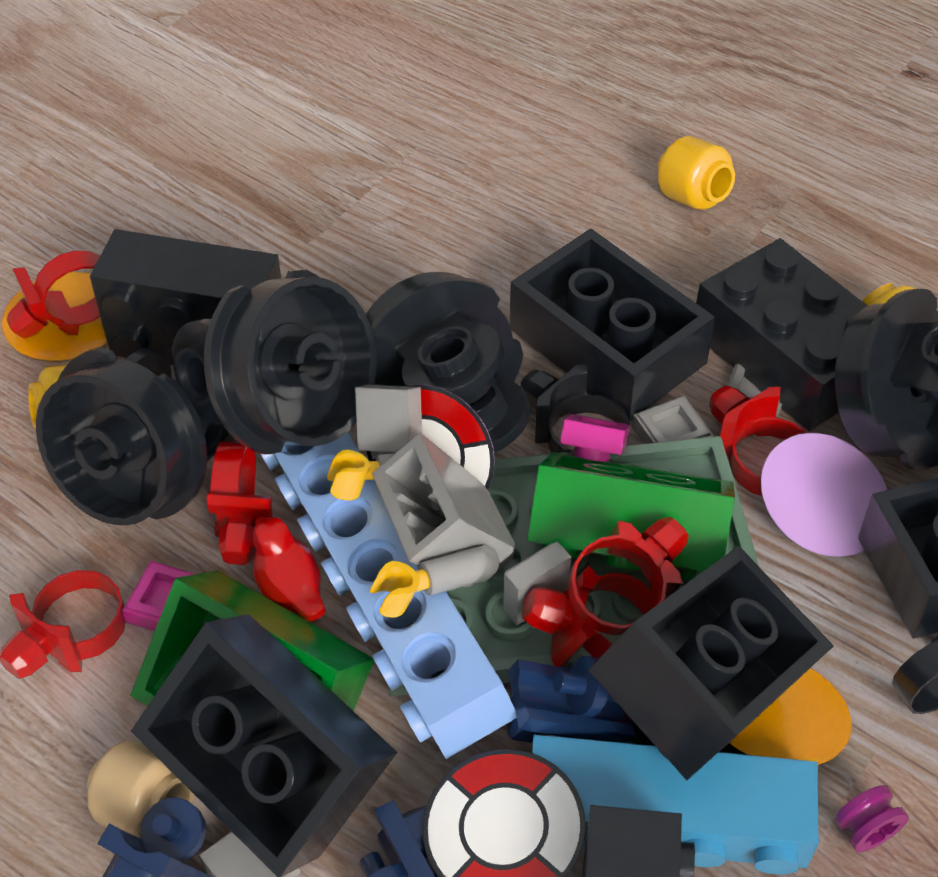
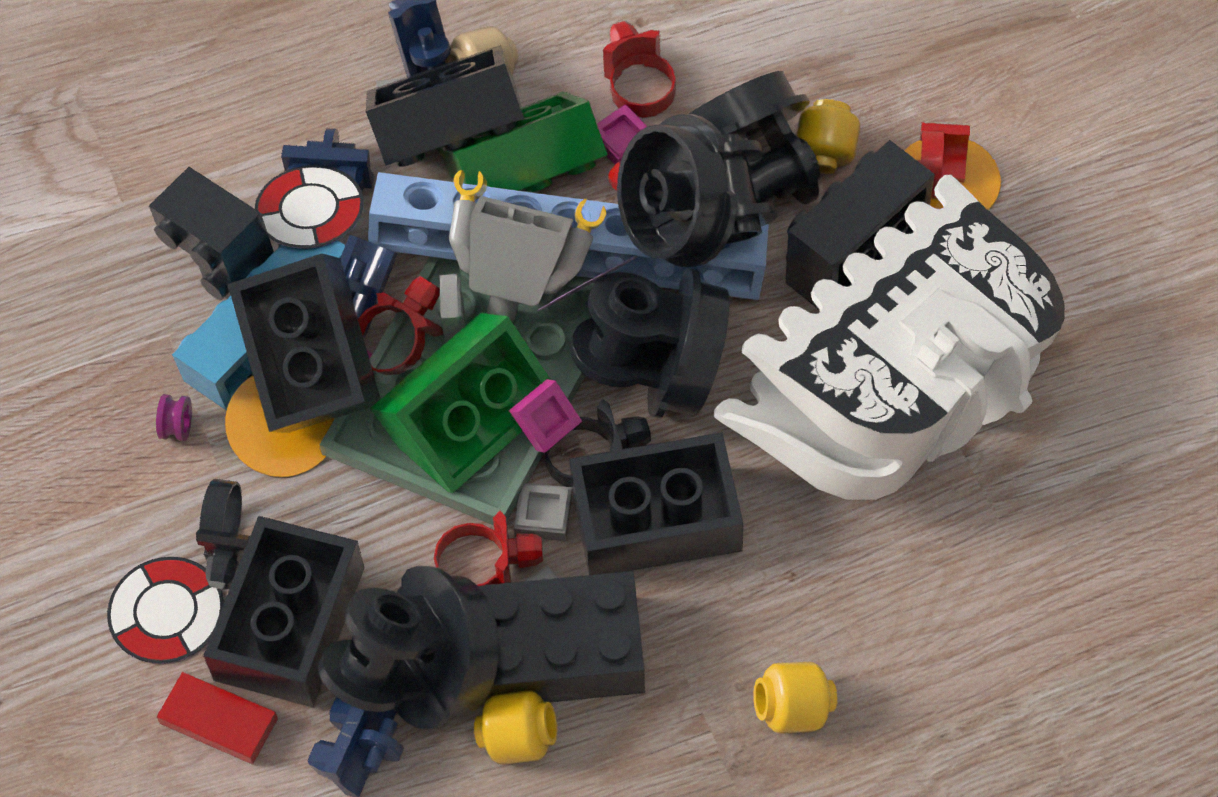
camera: 125 degrees right, 10 degrees up
(285, 178) = (904, 354): none -> white animal
(286, 569) = (576, 182): red animal -> none
(387, 417) = (611, 250): light grey tile -> none
(649, 551) = (405, 351): red piece -> none
(820, 492) = (410, 542): lavender sticker -> none

